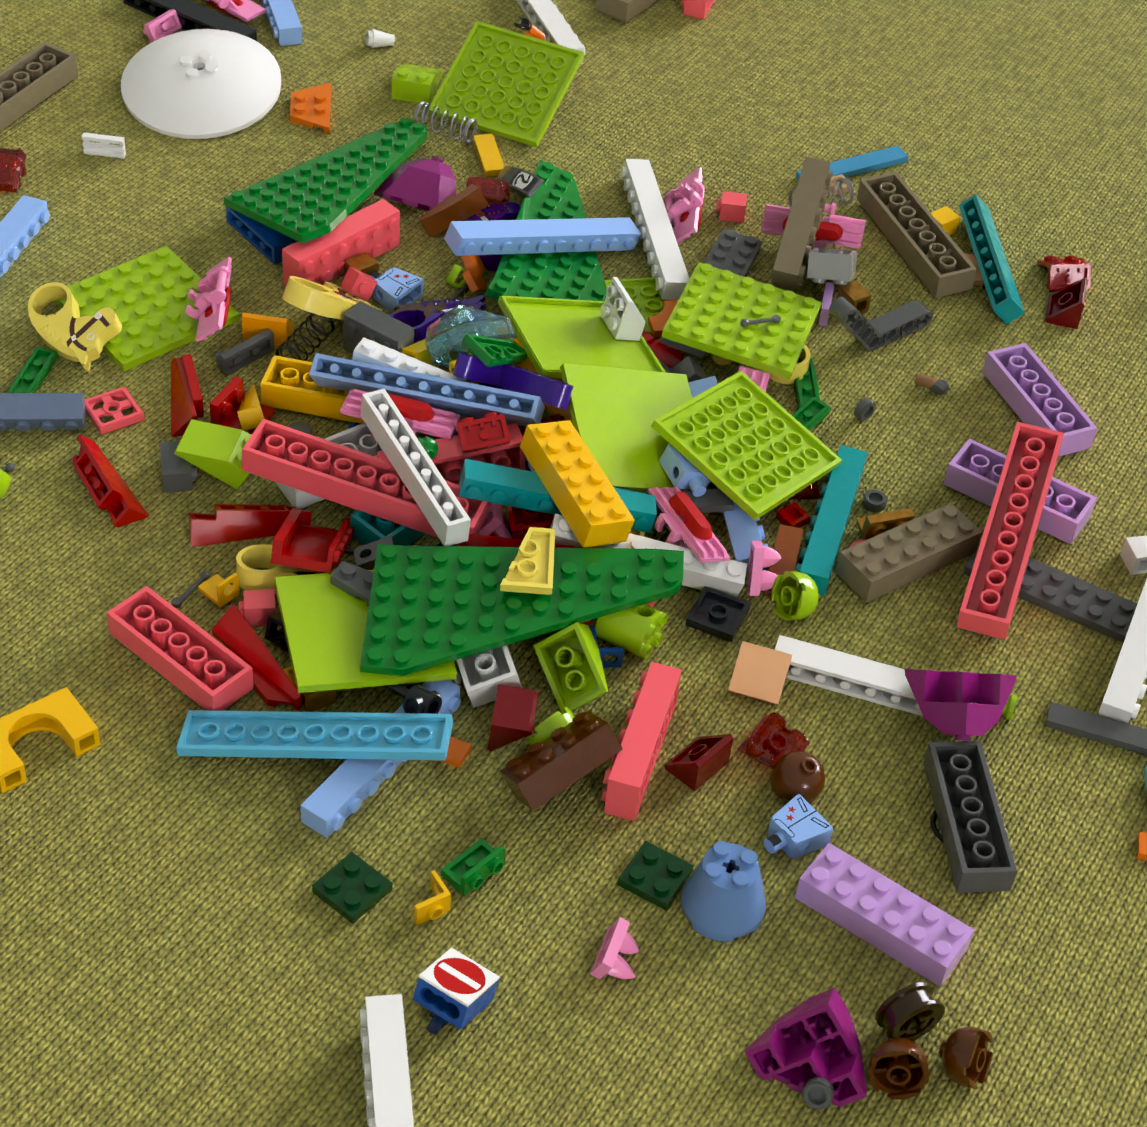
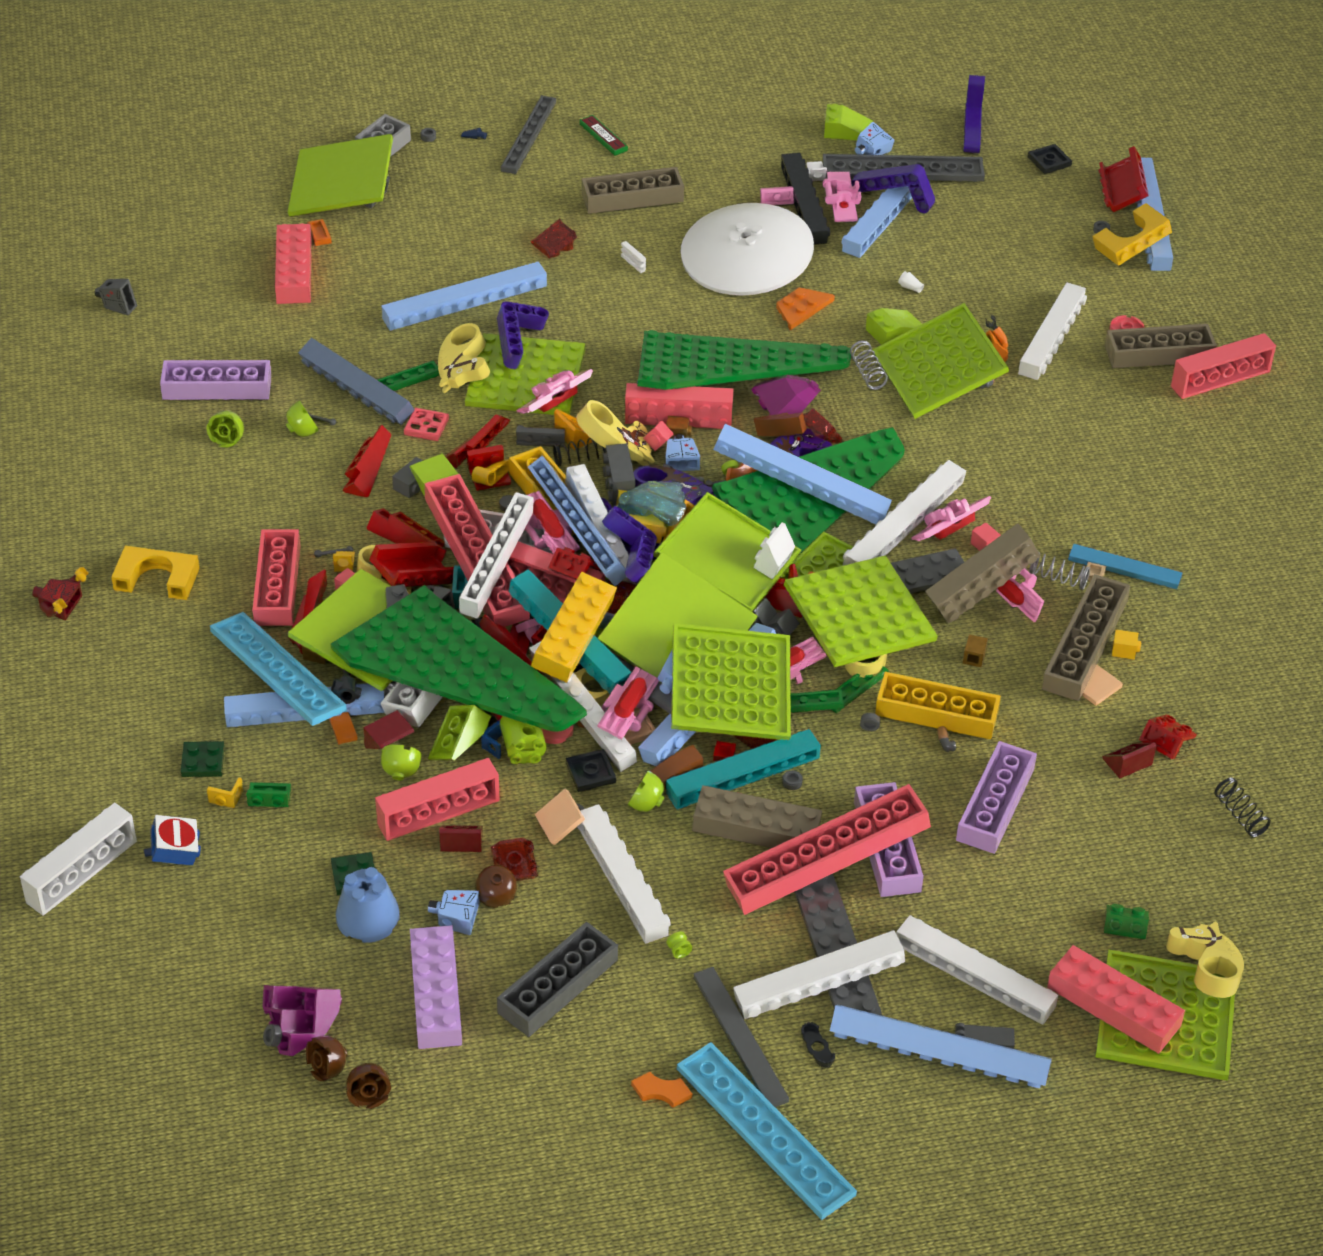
camera: 50 degrees right, 0 degrees up
(81, 262) = (509, 319): none -> dark purple beam
(429, 445) = (529, 552): green plate -> none
(488, 154) = (872, 404): yellow tile -> none
(494, 351) = (643, 520): green wing -> none
(520, 181) = (848, 431): dark grey slope -> none
(533, 564) = (482, 655): light yellow wing -> none
(560, 759) = (371, 771): reddish brown brick -> none
(608, 959) = (268, 890): bright pink tile -> none
(760, 579) = (643, 754): bright pink tile -> none
(775, 319) = (875, 622): dark grey hinge -> none
(826, 302) = (949, 641): lavender tile -> none
(831, 265) = (979, 616): light grey brick -> none
(879, 523) = (764, 790): pearl gold bracket -> none
(883, 329) = (939, 670): dark grey beam -> none
(896, 359) = (937, 705): none -> yellow brick
(910, 1012) = (365, 1037): dark brown wheel -> none
(960, 701) = (637, 915): magenta brick -> none
(991, 259) = (1117, 689): teal brick -> none

